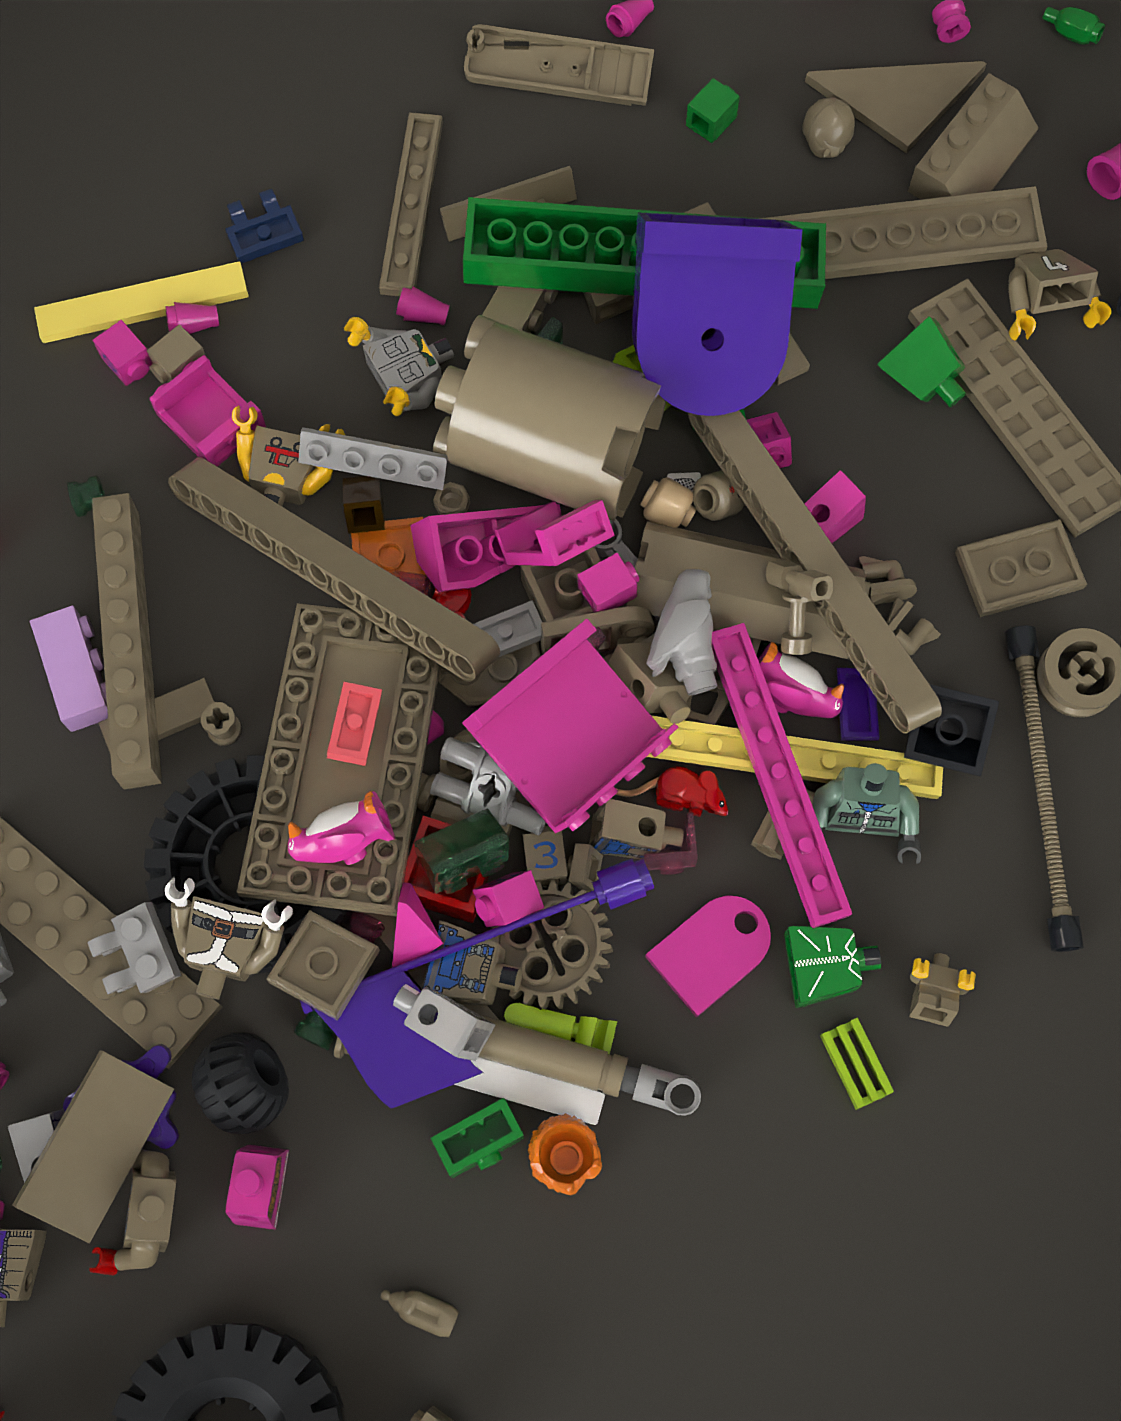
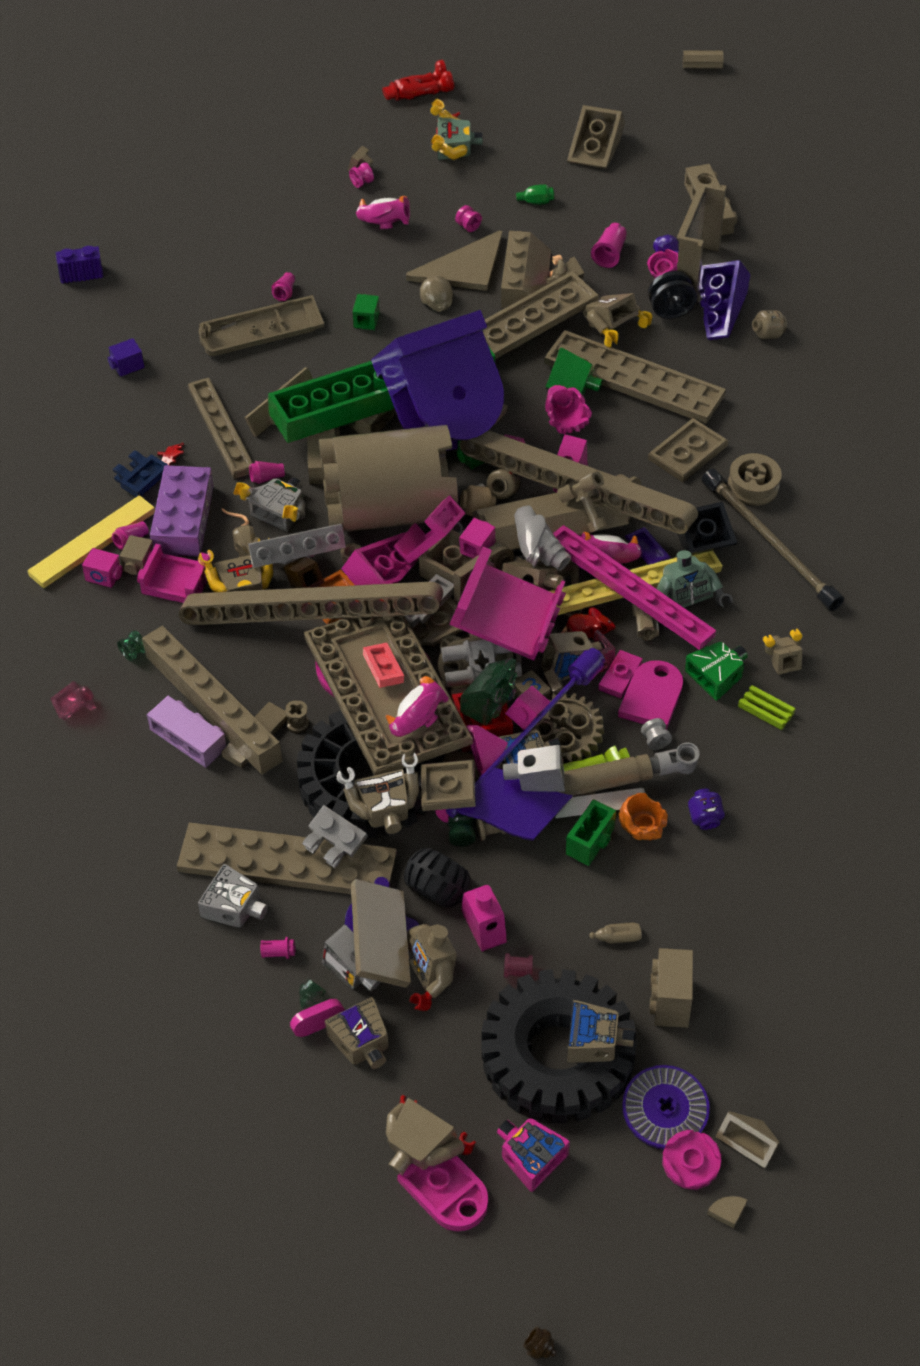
camera: 30 degrees left, 20 degrees down
(257, 1286) = (517, 965): none -> clear pink bush
(274, 315) = (182, 510): none -> medium lavender brick
(321, 215) = (171, 453): none -> red piece
(330, 398) = (242, 535): none -> dark tan animal
(353, 31) = (125, 357): none -> dark purple brick
(661, 1189) = (706, 809): none -> dark purple head
(672, 1024) = (656, 734): none -> light grey wheel
(689, 892) = (620, 674): none -> dark pink plate
(883, 417) = (567, 409): none -> dark pink hair
(1029, 176) = (564, 268): none -> dark tan piece

